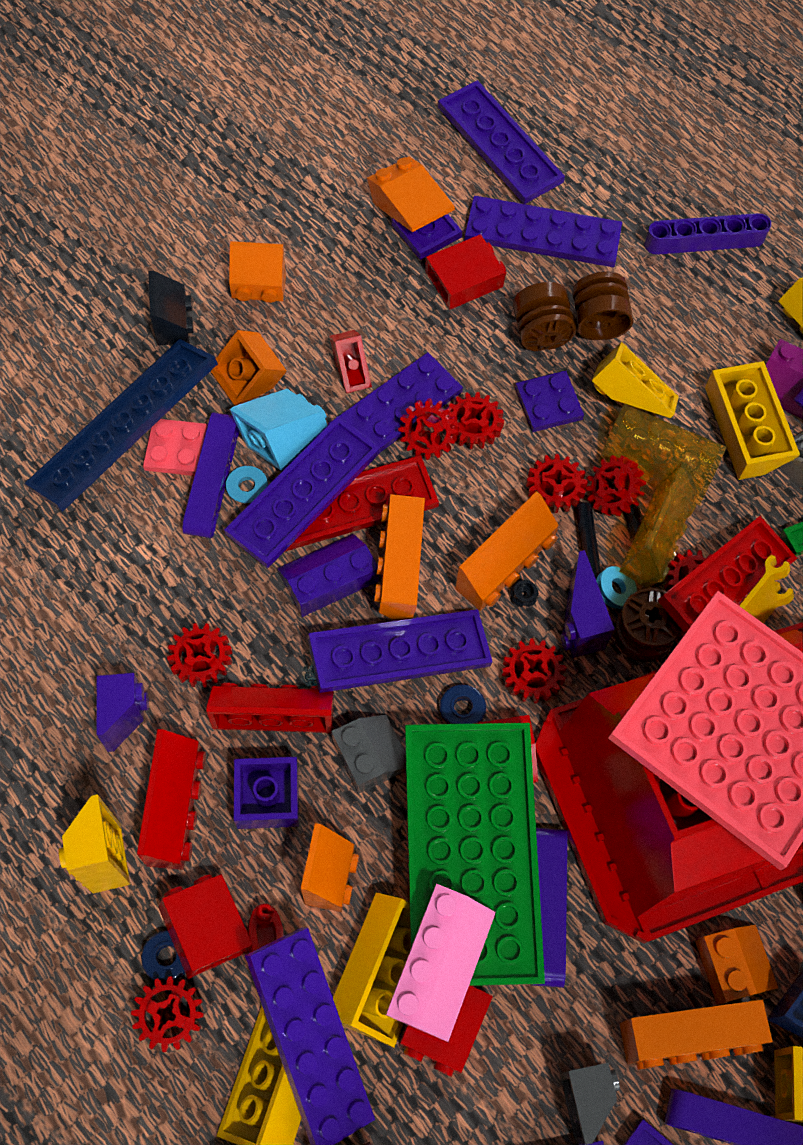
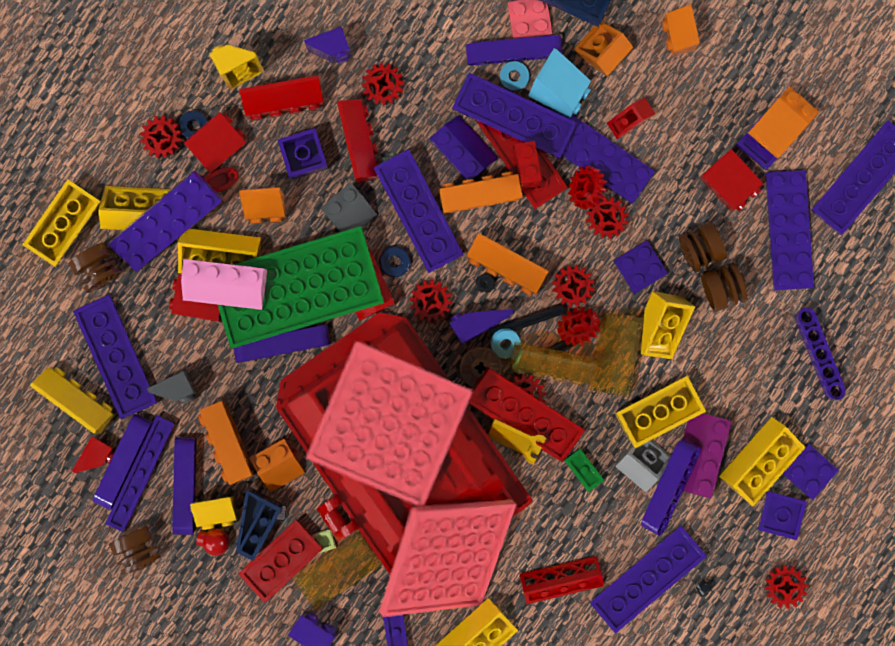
camera: 80 degrees right, 20 degrees up
(376, 477) = (527, 165): none -> red brick

